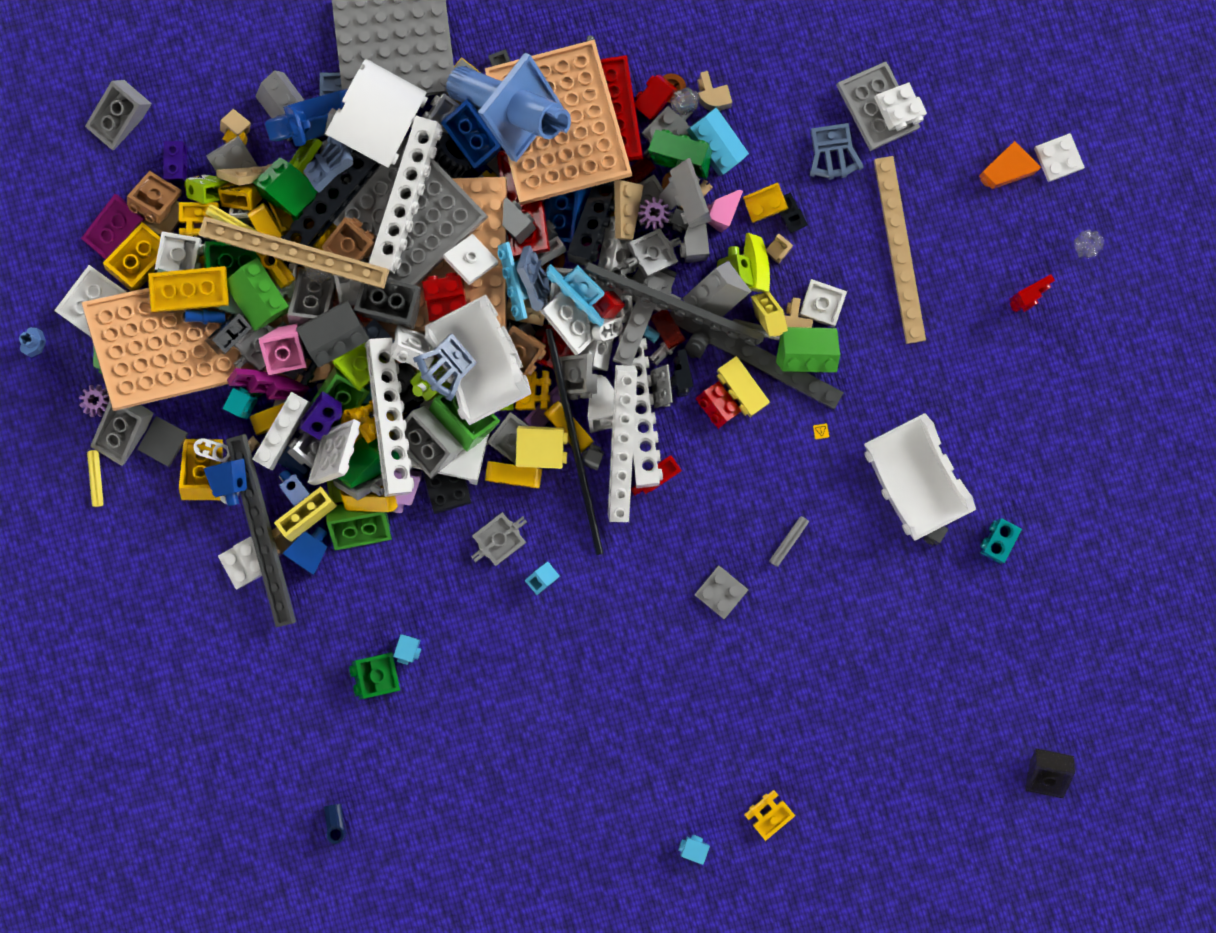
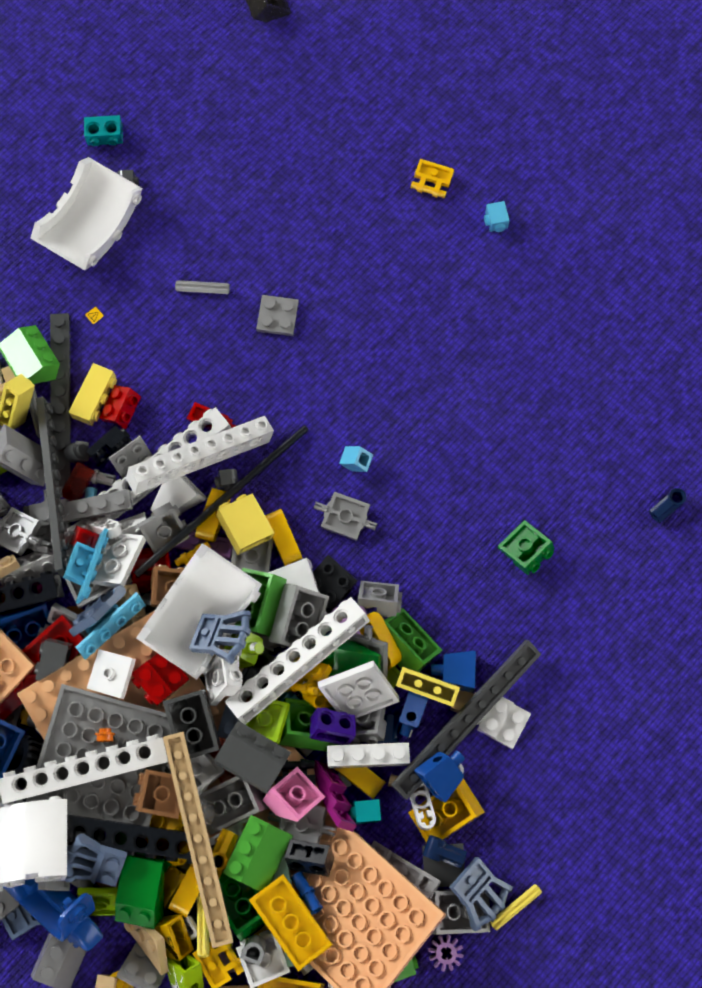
camera: 110 degrees left, 10 degrees down
(130, 451) = (471, 885): none -> sand blue plate
(172, 443) = (440, 850): none -> dark blue piece
(176, 407) = (422, 880): none -> light grey slope
(186, 249) = (254, 950): none -> dark grey plate
(407, 523) = (380, 595): none -> light grey plate
(407, 649) = (486, 534): medium azure brick -> none
(422, 226) = (105, 735): none -> orange plate

